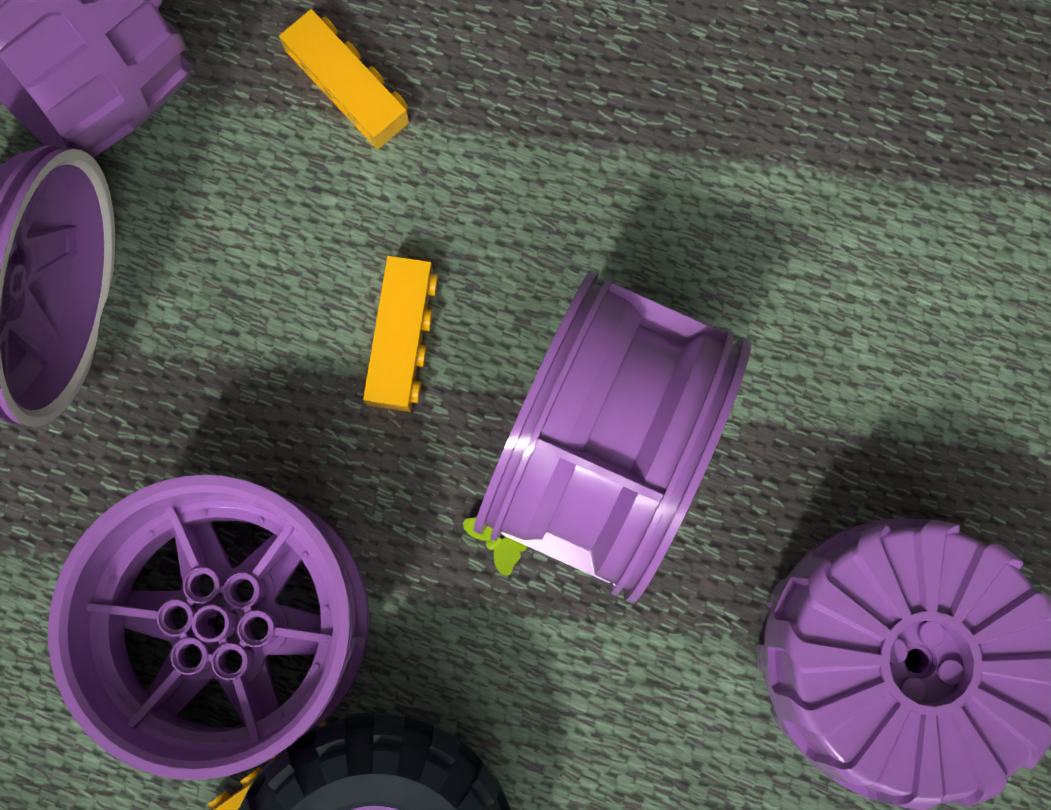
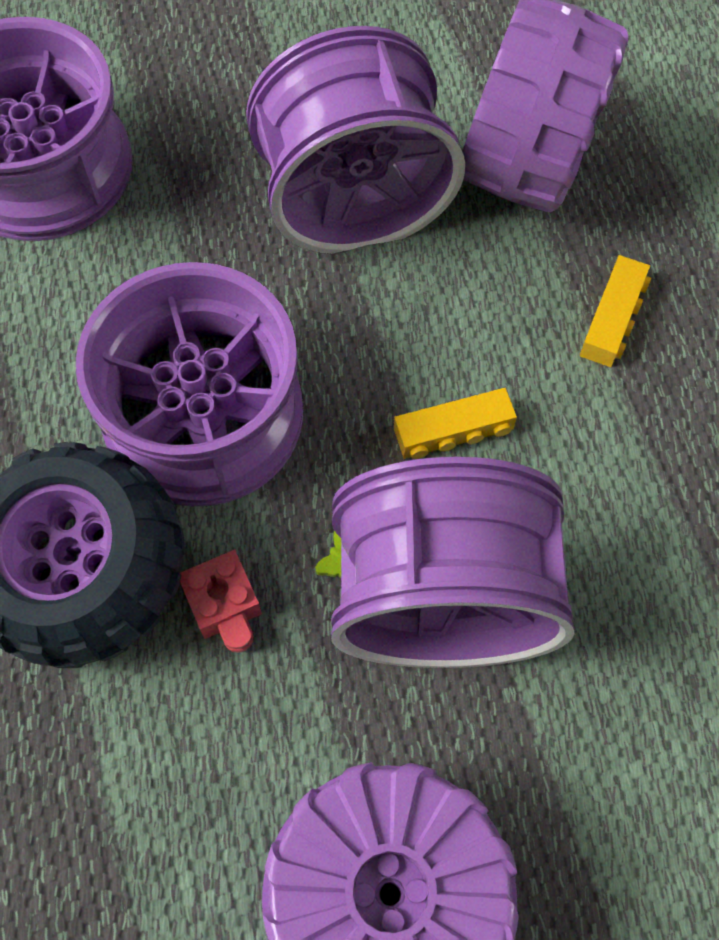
camera: 70 degrees right, 15 degrees down
(491, 698) = (222, 600): none -> coral brick

